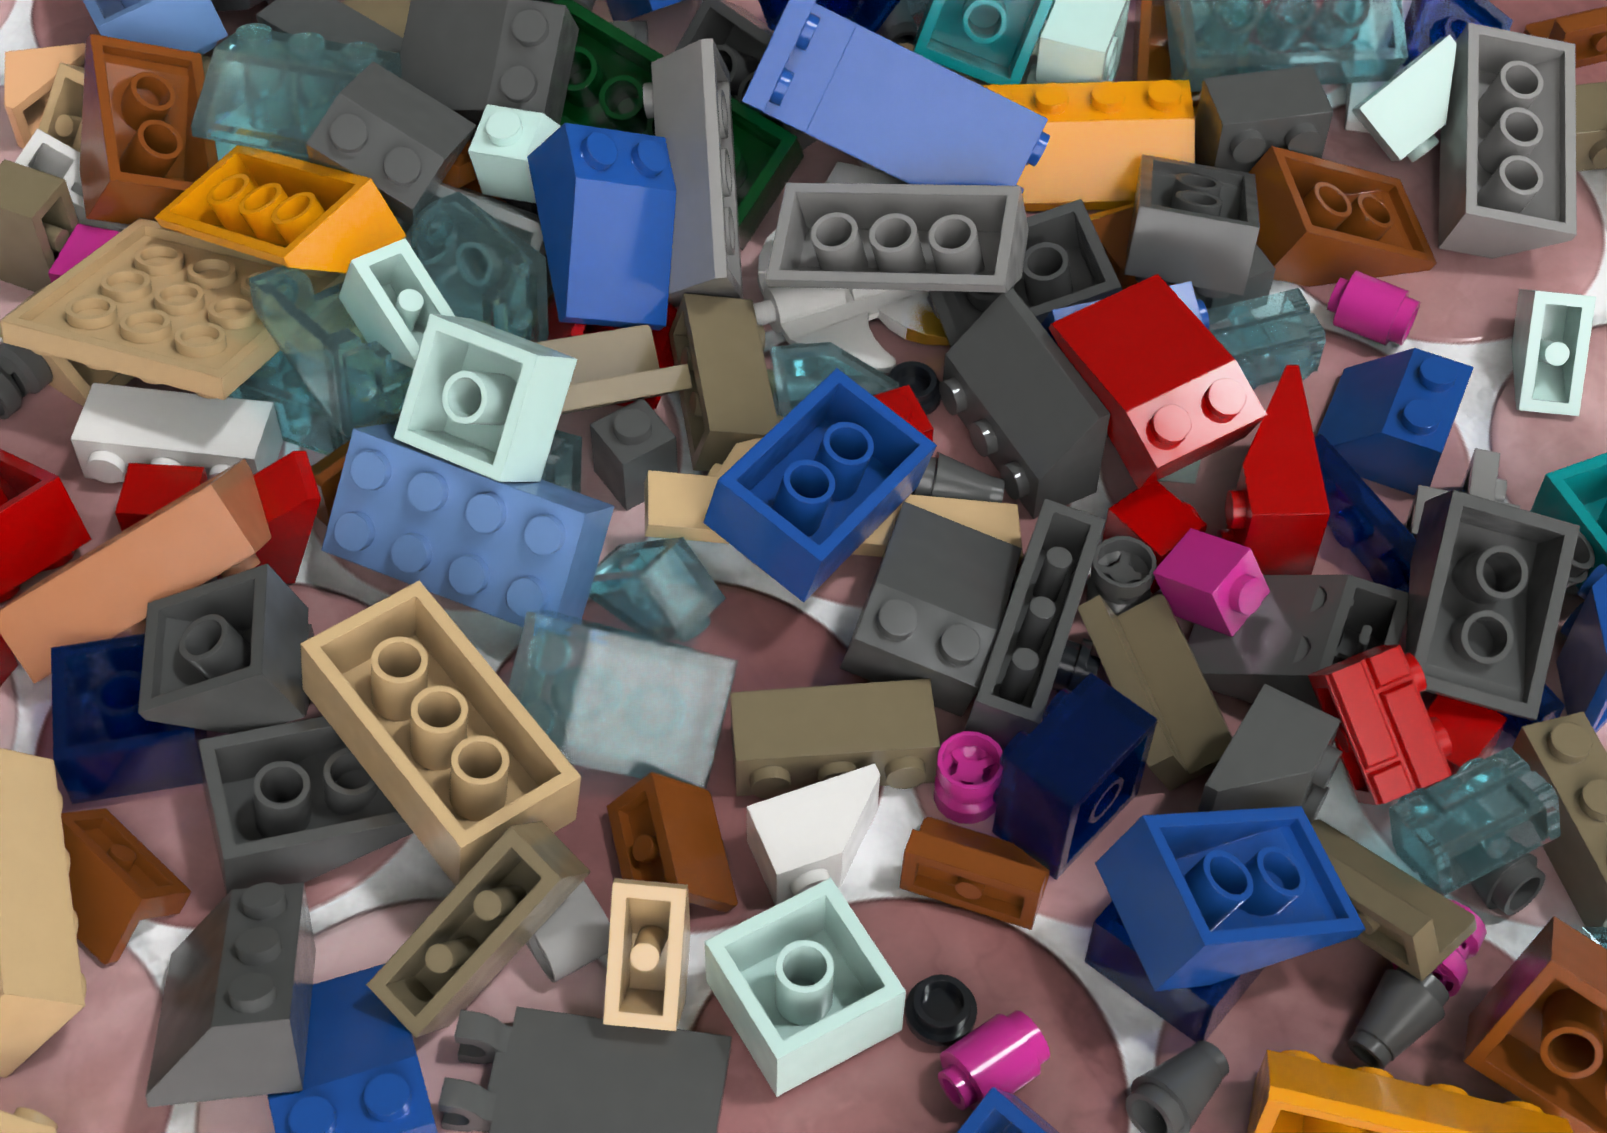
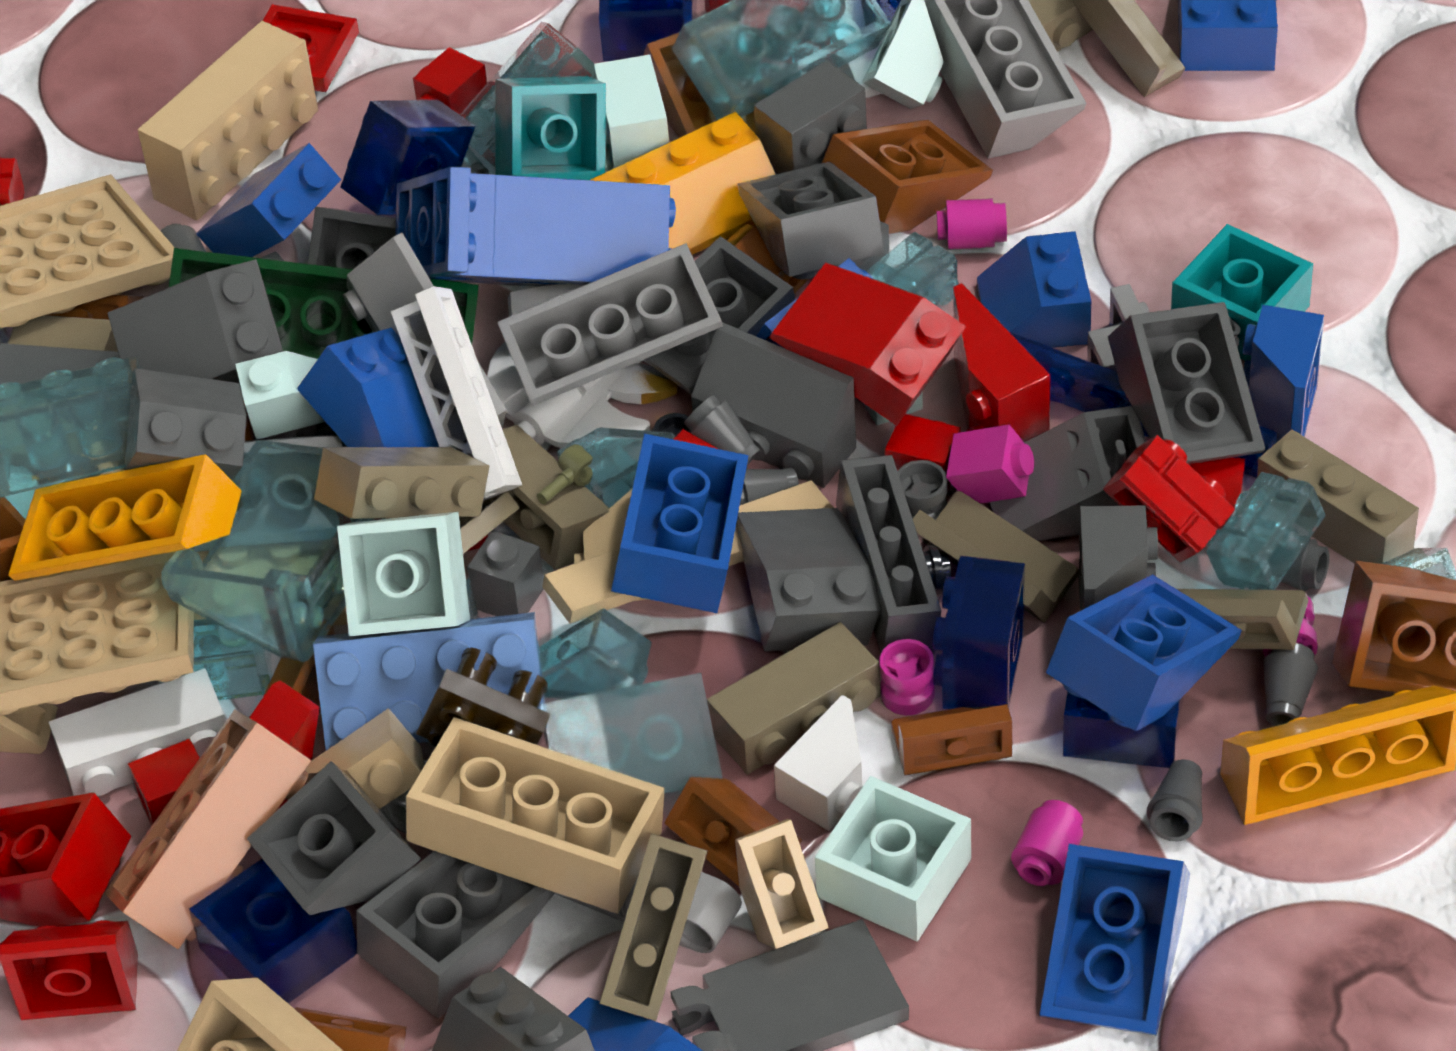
camera: 25 degrees left, 5 degrees down
(344, 578) = (377, 758): none -> tan slope
(392, 299) = (282, 538): light aqua slope -> none
(452, 579) = (468, 698): none -> dark brown plate
(553, 301) = (400, 481): none -> dark tan brick
(681, 237) = (465, 383): none -> white fence
(770, 374) = (574, 468): none -> olive hand
(940, 1010) = (992, 832): black plate -> none
(950, 406) = (721, 427): none -> dark grey cone
(1551, 350) = (1115, 196): light aqua slope -> none

